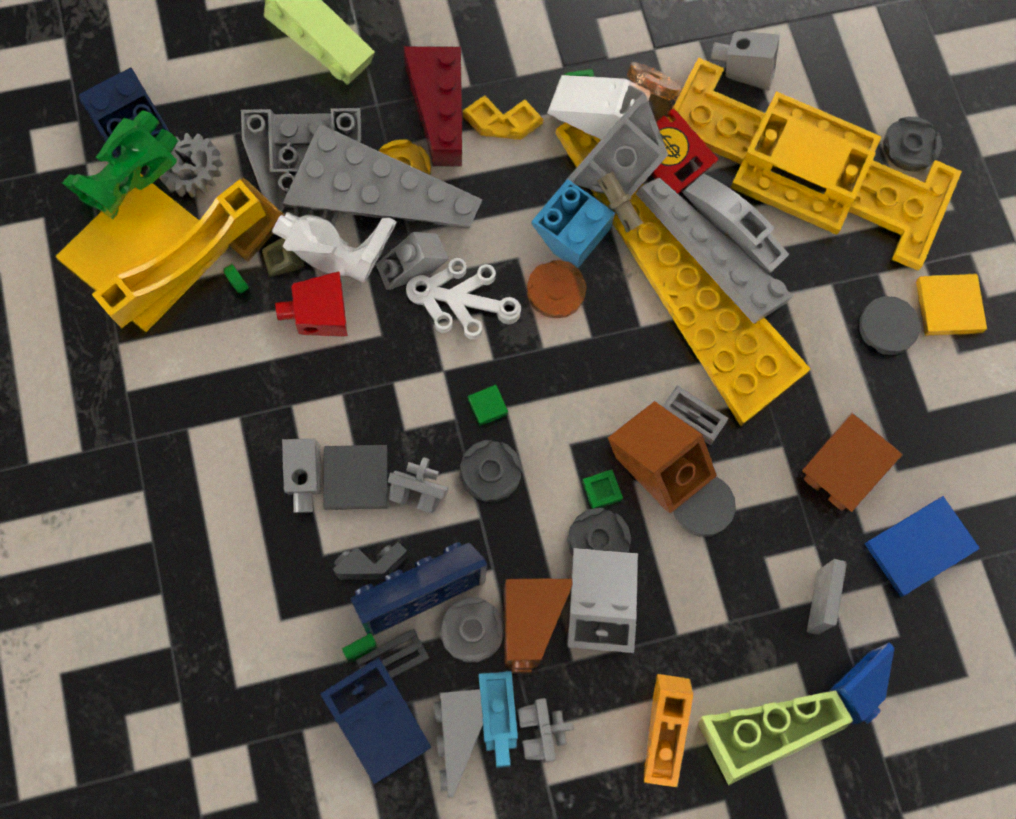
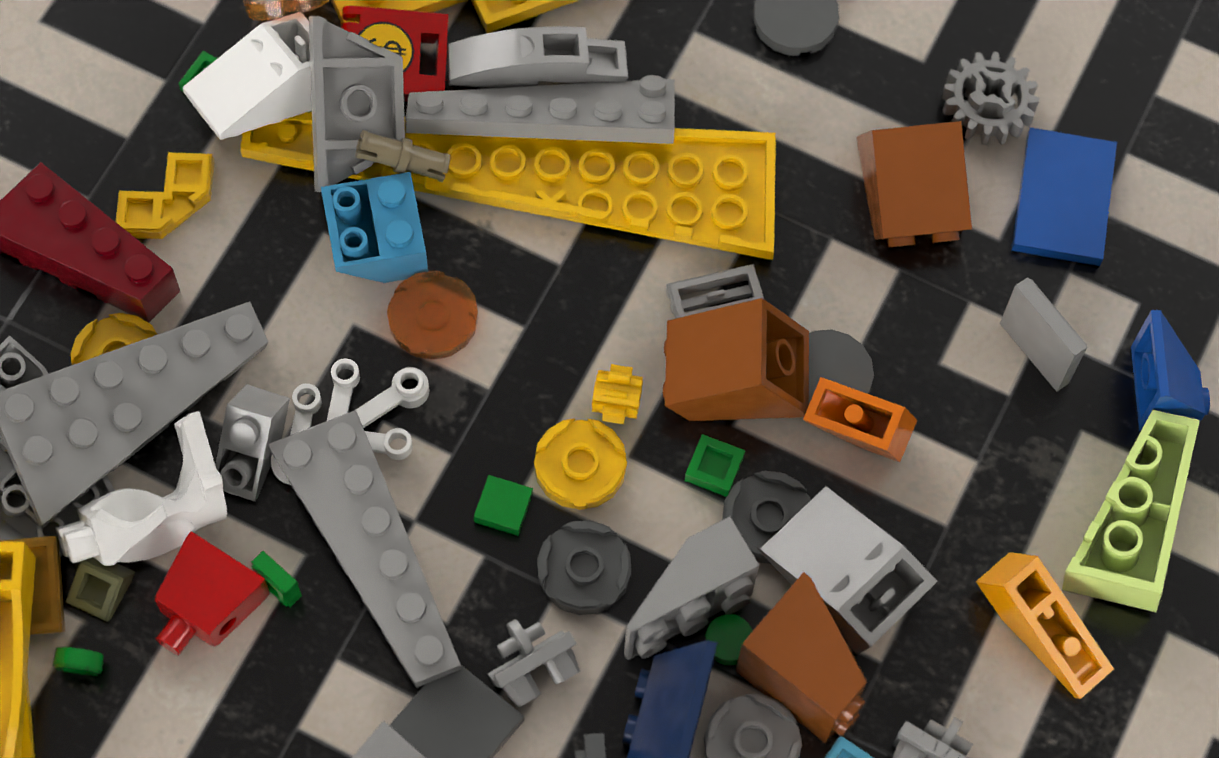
camera: 45 degrees left, 5 degrees down
(352, 332) = (279, 581): none -> green tile
(415, 342) = (355, 513): none -> light grey wing
(515, 569) = (729, 633): none -> green tile
(522, 530) = (705, 577): none -> light grey slope
(543, 423) = (580, 463): none -> yellow tile
(593, 410) = (617, 394): none -> yellow gear
(691, 541) = (861, 419): none -> orange slope
(929, 468) = (990, 98): none -> light grey gear

